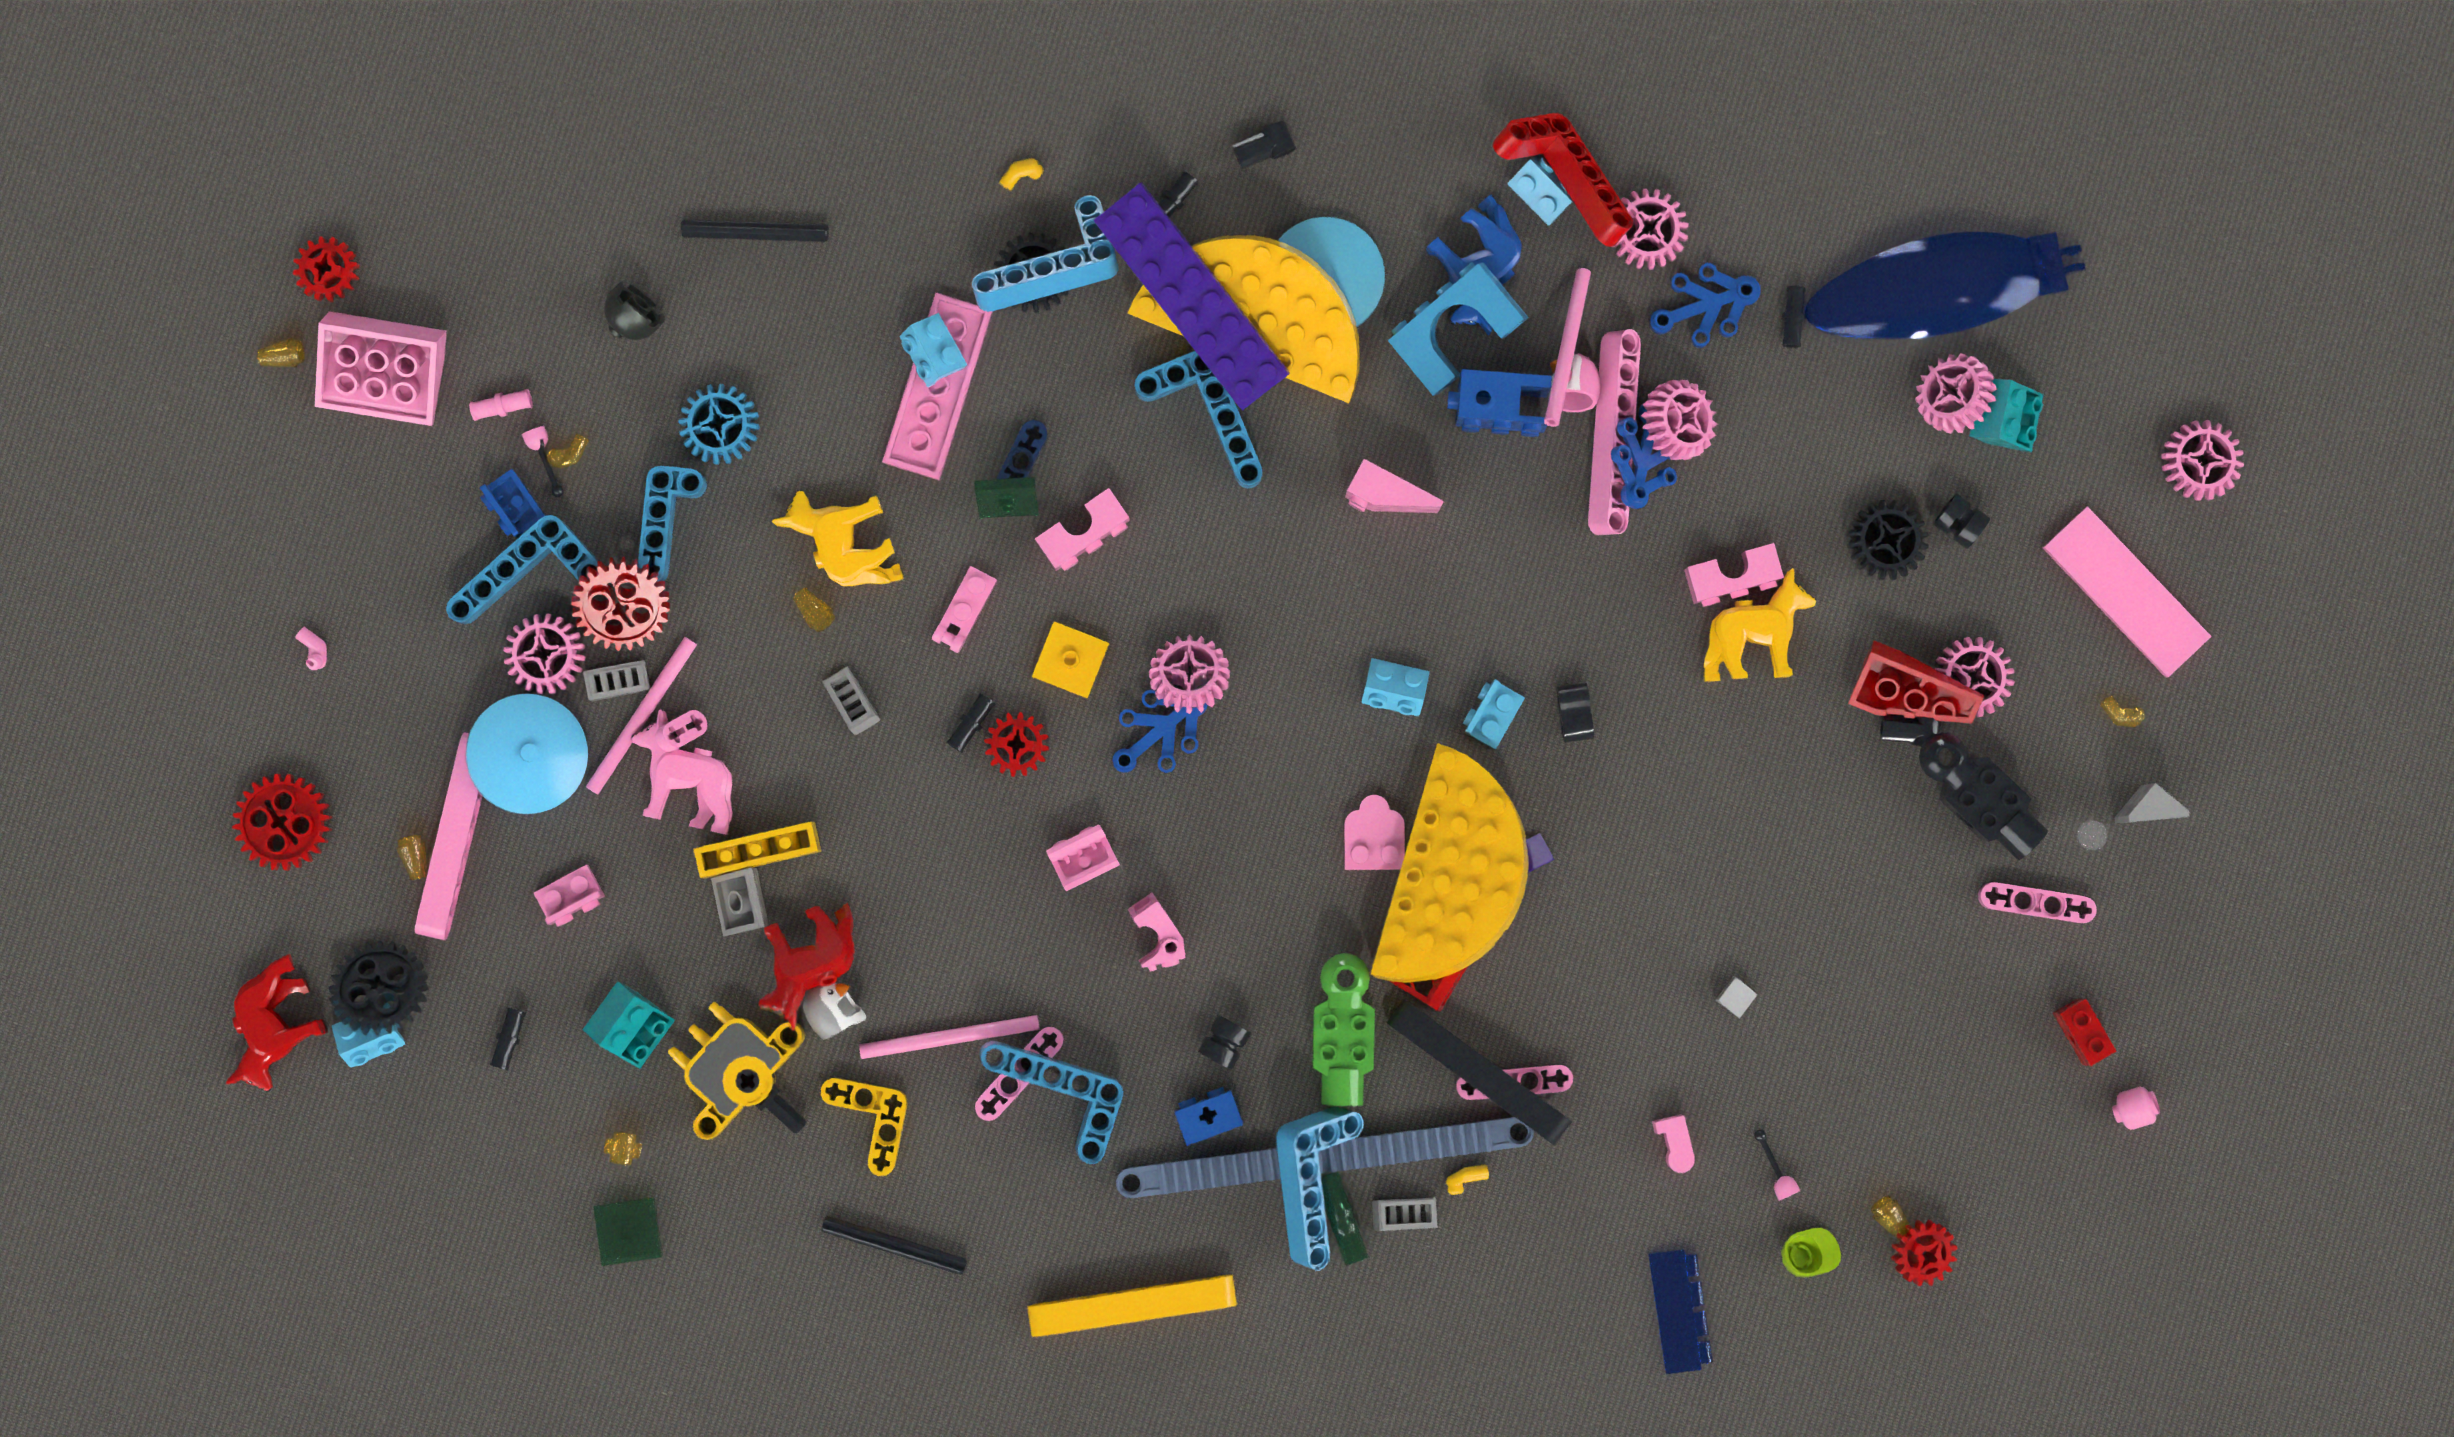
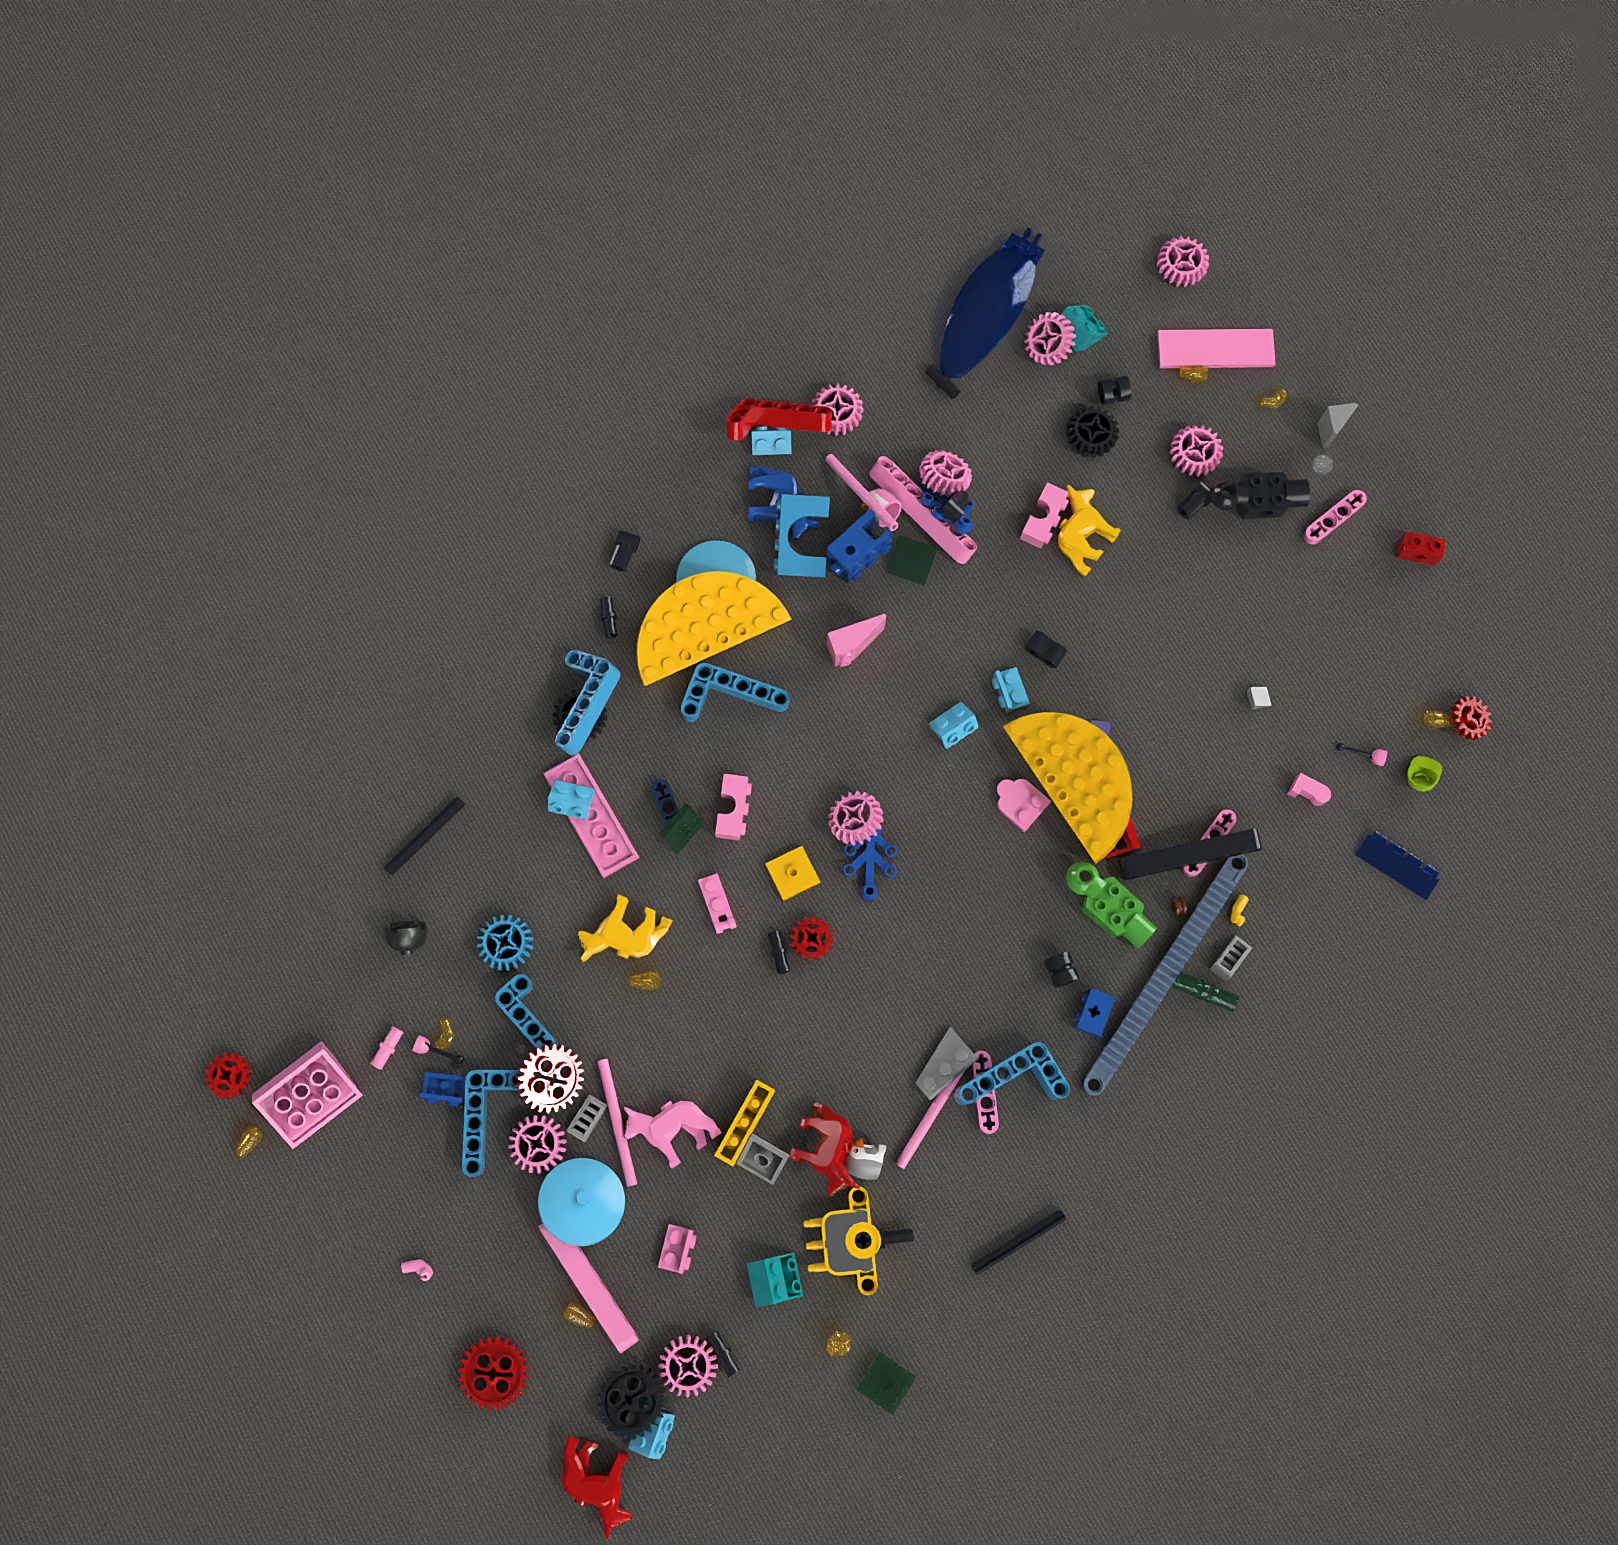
camera: 50 degrees left, 10 degrees down
(437, 1015) = (696, 1372): none -> bright pink gear
(684, 735) = (641, 1106): bright pink beam -> none
(861, 723) = (728, 1006): light grey slope -> none
(877, 1107) = (937, 1183): yellow beam -> none
(1011, 1006) = (945, 1065): none -> light grey wing
(1019, 169) = (521, 677): yellow arm -> none
(1082, 857) = (900, 957): bright pink bracket -> none
(1132, 1305) = (1160, 1143): yellow beam -> none
(1151, 914) = (963, 945): bright pink tile -> none
(1191, 296) = (667, 644): dark purple plate -> none
(1301, 1179) = (1171, 992): dark azure beam -> none
(1411, 1108) = (1178, 906): none -> reddish brown bush
(1546, 473) = (912, 560): none -> clear green tile
(1639, 466) = (954, 506): none -> black piece
(1710, 303) = (899, 413): blue plant -> none
(1905, 686) = (1173, 484): red wedge -> none
(2070, 594) = (1194, 373): none -> clear yellow cone
(2136, 1108) = (1480, 557): bright pink head -> none

